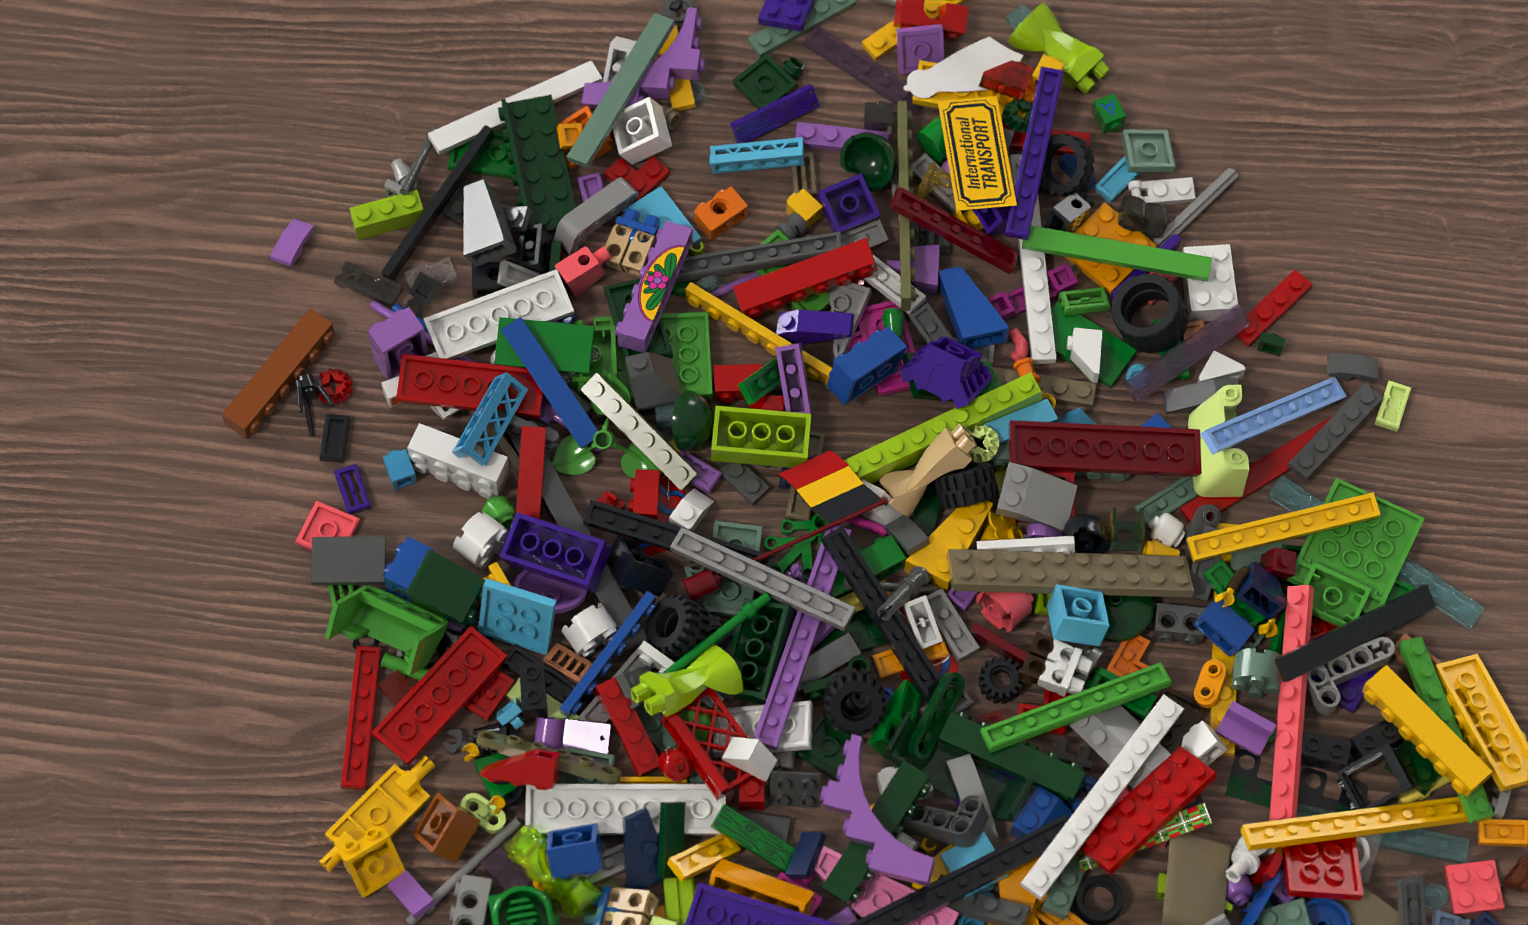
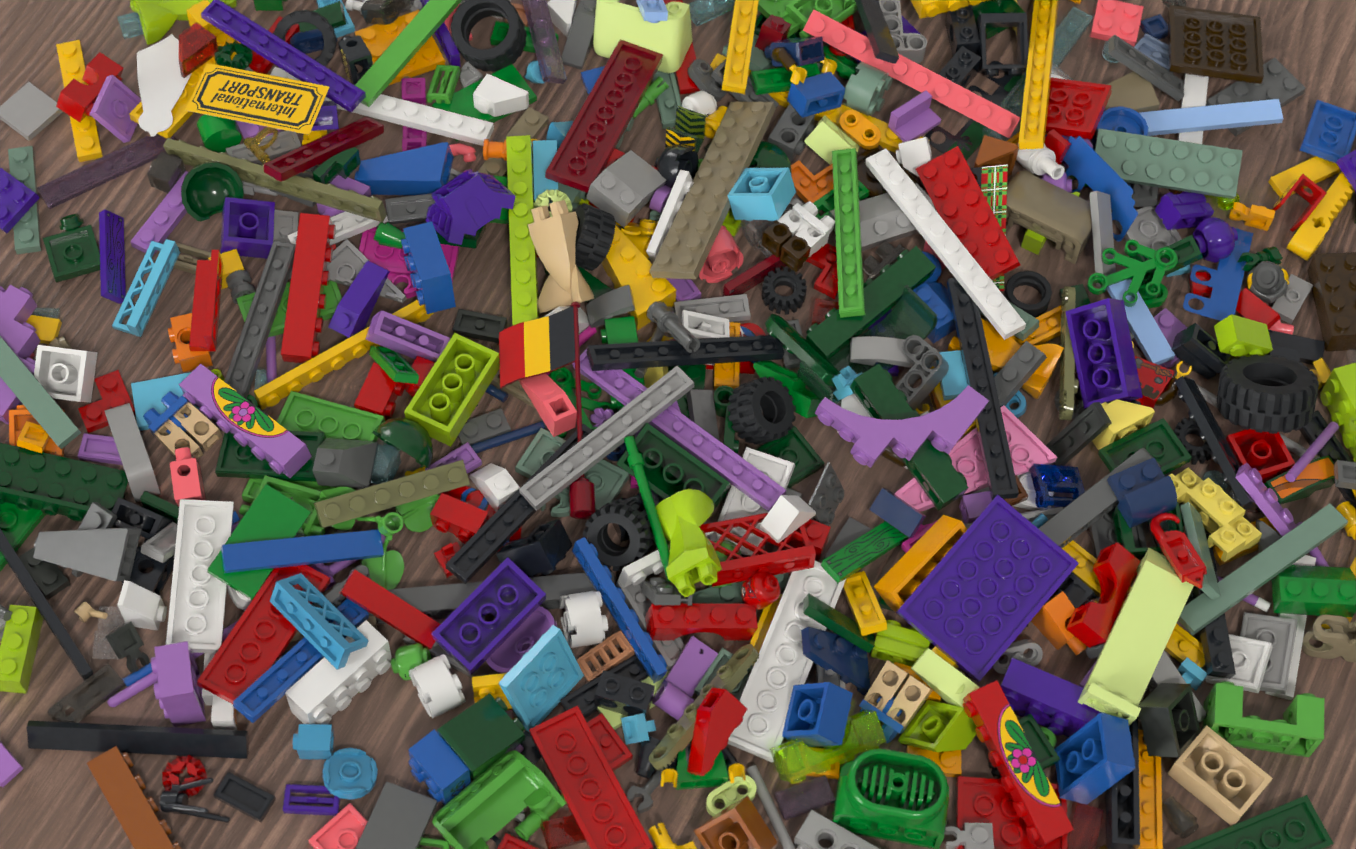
camera: 70 degrees left, 5 degrees down
(348, 338) = (138, 739): none -> black tile
(384, 507) = (350, 773): none -> dark azure tile
(441, 249) = (85, 611): none -> tan hand
(445, 420) = (289, 669): none -> blue plate
(457, 283) = (141, 606): none -> white slope
(745, 504) = (507, 437): none -> dark blue bar
(754, 207) = (206, 303): none -> red fence
(784, 522) = (550, 403): none -> coral slope
(843, 434) = (479, 325): none -> pearl dark grey plate
(922, 765) = (843, 382): none -> medium azure tile
(944, 251) = (340, 164): none -> dark green slope
(1104, 321) = (469, 75): none -> light grey tile
(1105, 172) = (333, 13): none -> dark green tile
(1157, 482) = (650, 95): none -> bright green pin
(1184, 662) = (828, 138): none -> yellowish green panel
(1227, 813) = (995, 153): none -> dark orange slope

